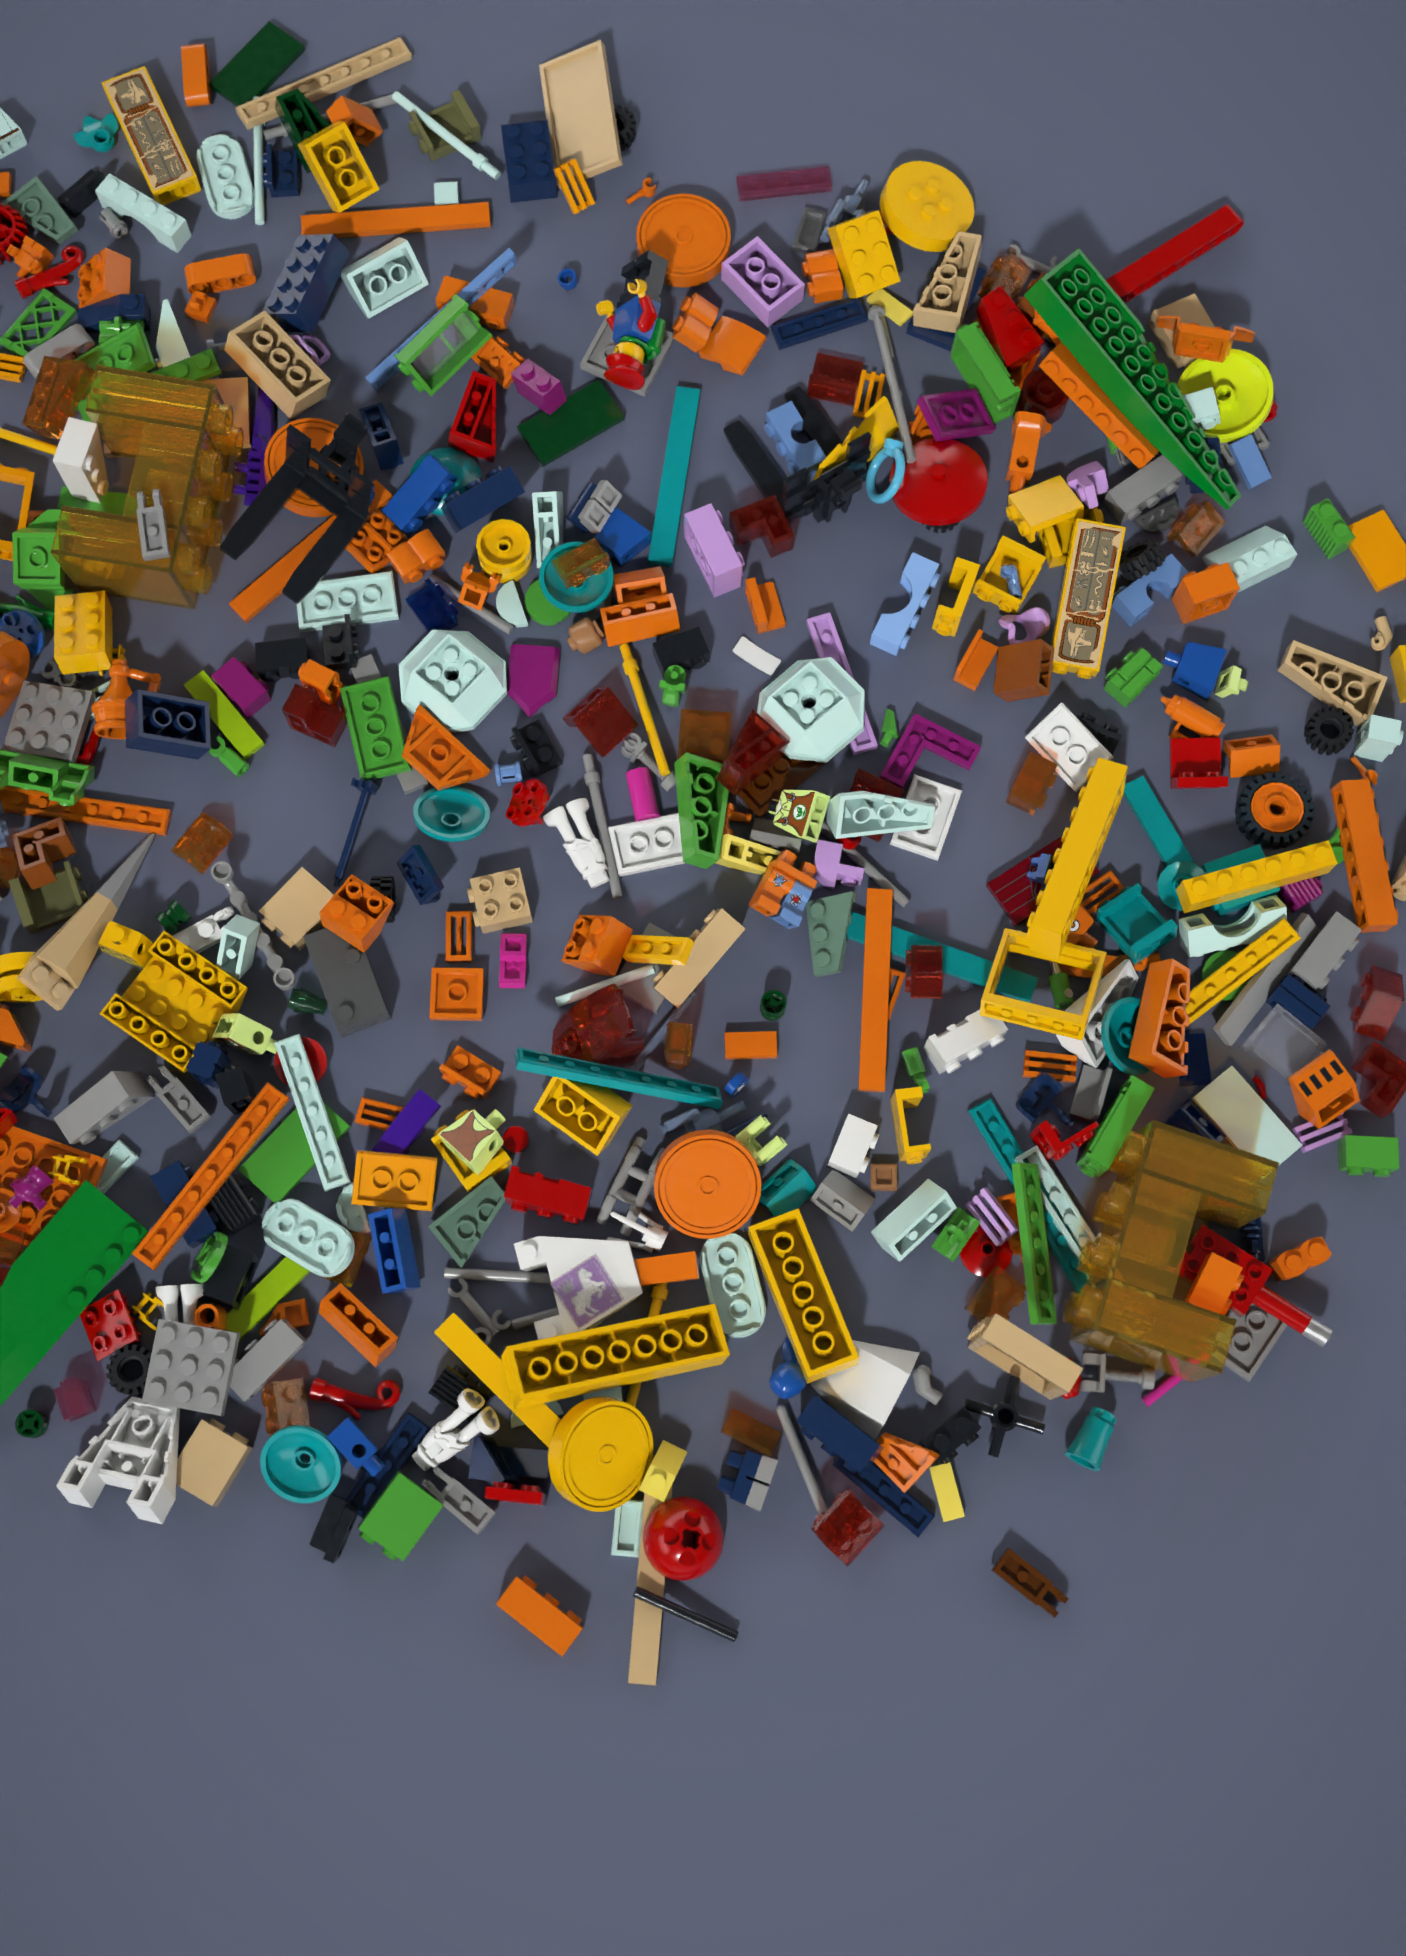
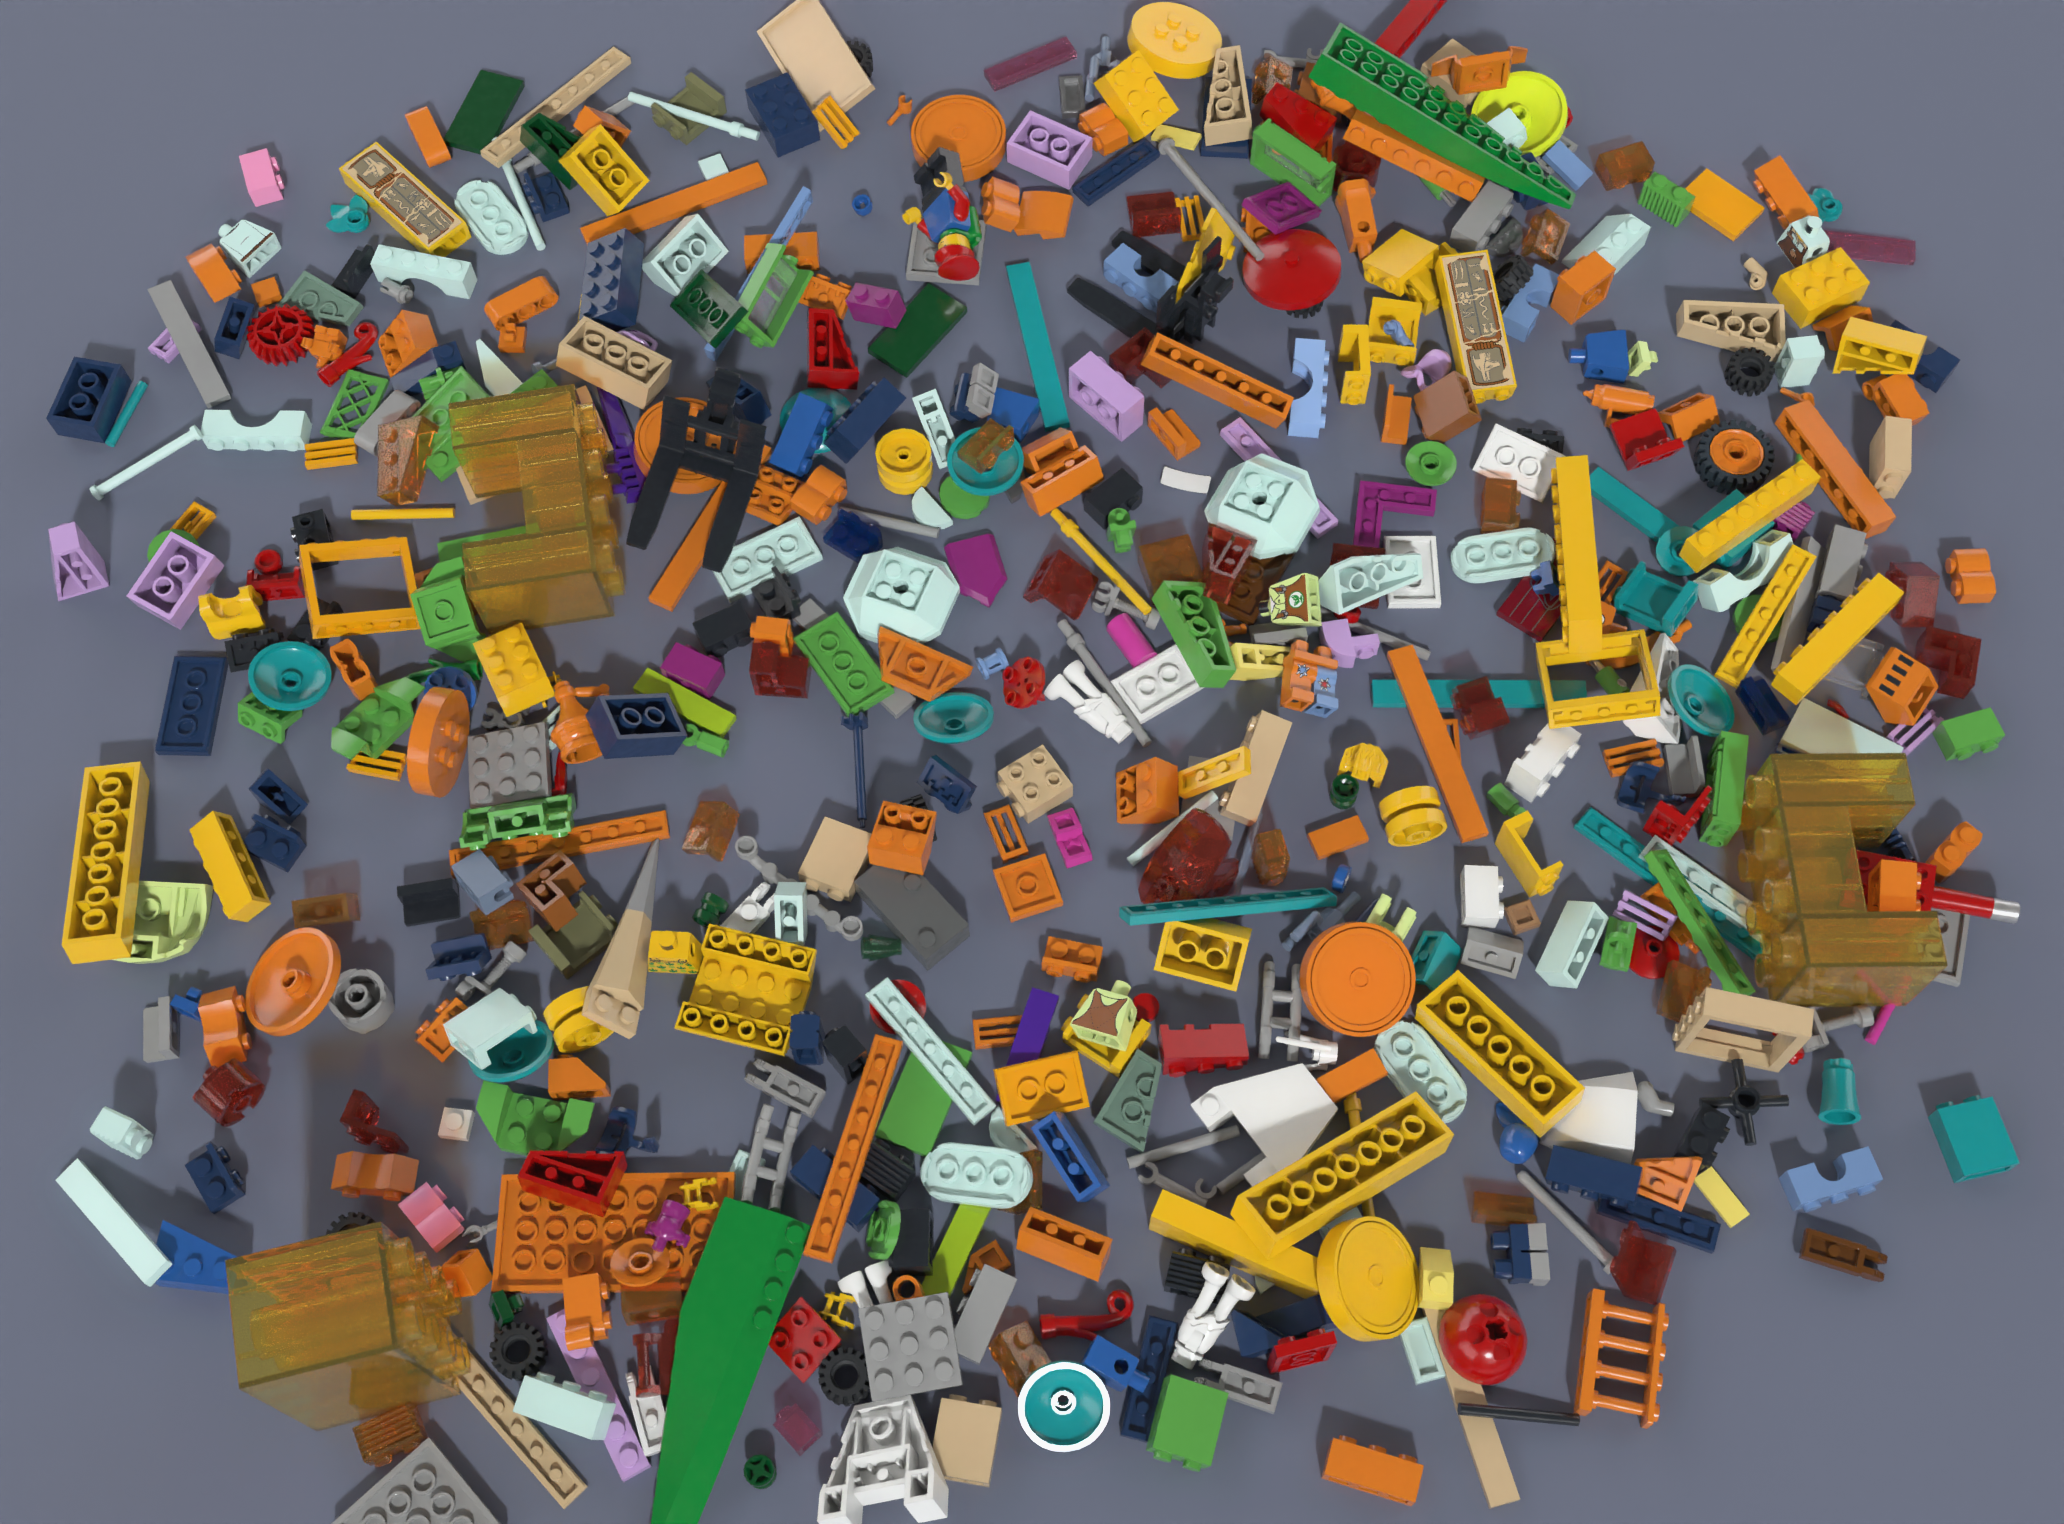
camera: 15 degrees left, 10 degrees down
(31, 67) = (261, 177): none -> bright pink brick
(82, 461) = (456, 505): white wedge -> none
(103, 1106) = (711, 1120): light grey wedge -> none
(142, 1174) = (784, 1149): none -> light grey piece
(152, 527) = (563, 533): light grey hinge -> none
(245, 1034) = (831, 996): yellowish green torso -> none
(334, 1527) = (1122, 1460): black panel -> none
(382, 339) = (708, 308): none -> dark green tile
(476, 587) = (890, 503): orange piece -> none
(536, 748) = (1008, 632): black bracket -> none
(585, 635) = (1014, 513): medium nougat head -> none
(586, 1291) = (1284, 1124): clear tile -> none
(766, 1598) = (1591, 1368): none -> orange fence
(799, 986) = (1364, 762): none -> yellow hair
(818, 572) = (1217, 380): none -> orange brick
(821, 1052) = (1412, 816): none -> yellow wheel
(828, 928) = (1366, 703): sand green wing -> none
(889, 728) = (1341, 503): bright green bar -> none
(892, 448) = (1239, 252): medium azure piece -> none
(988, 708) = (1433, 455): none -> bright green dish
(1013, 830) = (1501, 555): none -> light aqua tile
(1074, 1515) = (1808, 1189): none -> medium blue arch
(1088, 482) = (1432, 226): lavender brick -> none
(1132, 677) = (1549, 382): bright green brick -> none
(1162, 1020) = (1724, 674): orange wedge -> none
(1193, 1523) = (1973, 1138): none -> teal brick
(1282, 1023) = (1836, 638): none -> yellow brick
(1304, 481) = (1624, 166): none -> clear orange brick

